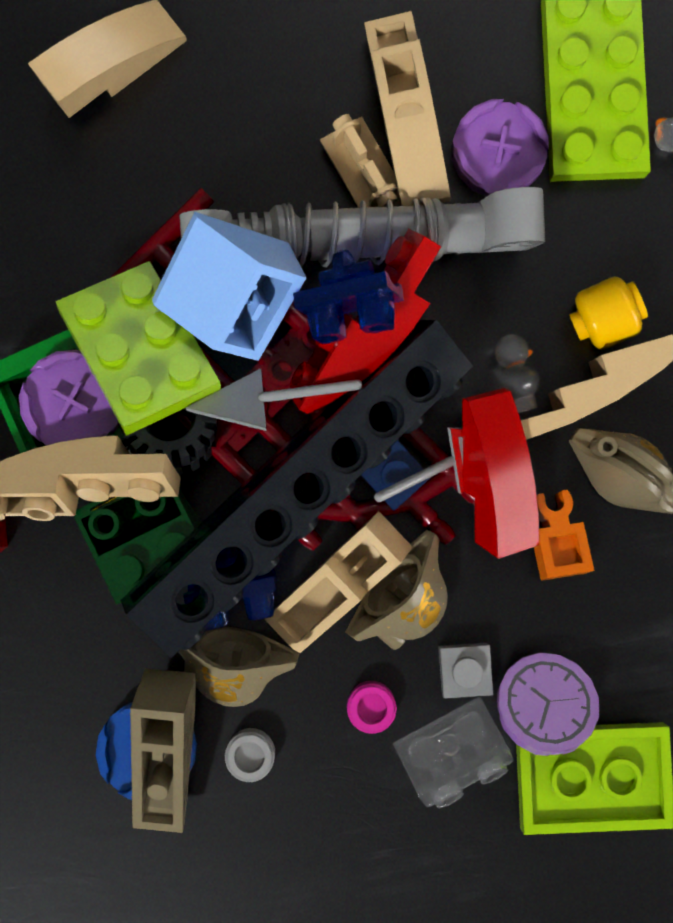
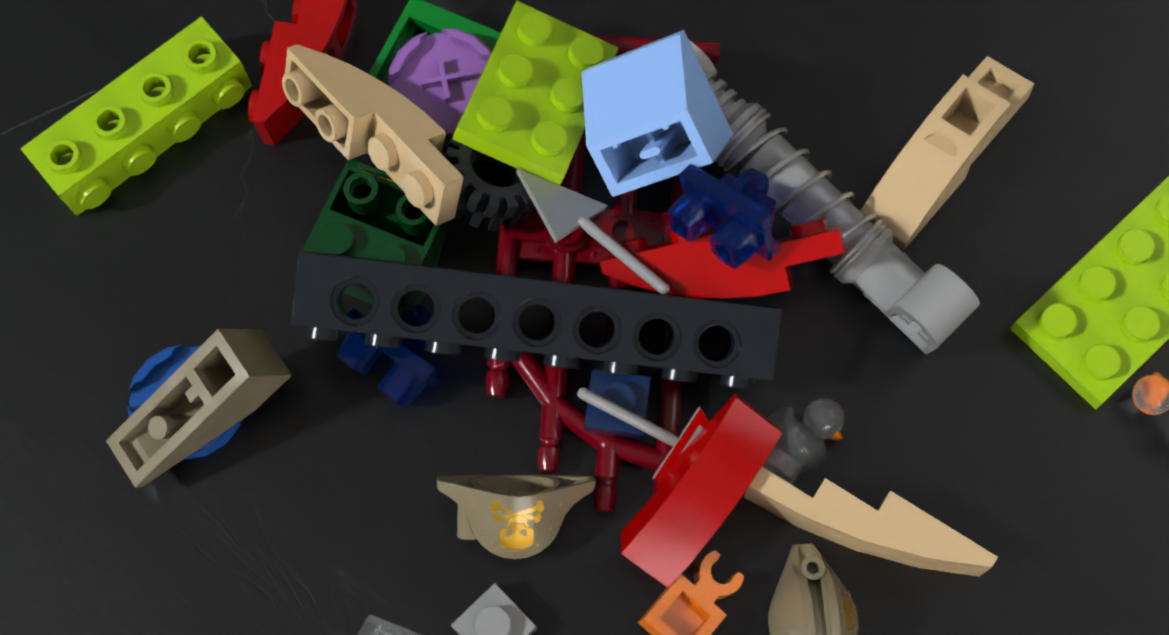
camera: 55 degrees right, 15 degrees down
(236, 664) = (324, 404): dark tan hat -> none
(250, 755) = (253, 495): light grey tile -> none
(339, 583) = (479, 438): tan slope -> none
(361, 163) = (867, 149): tan hinge -> none
(371, 707) = (387, 568): dark pink tile -> none
(499, 147) = (998, 256): medium lavender tile -> none
(609, 312) = (938, 472): yellow head -> none

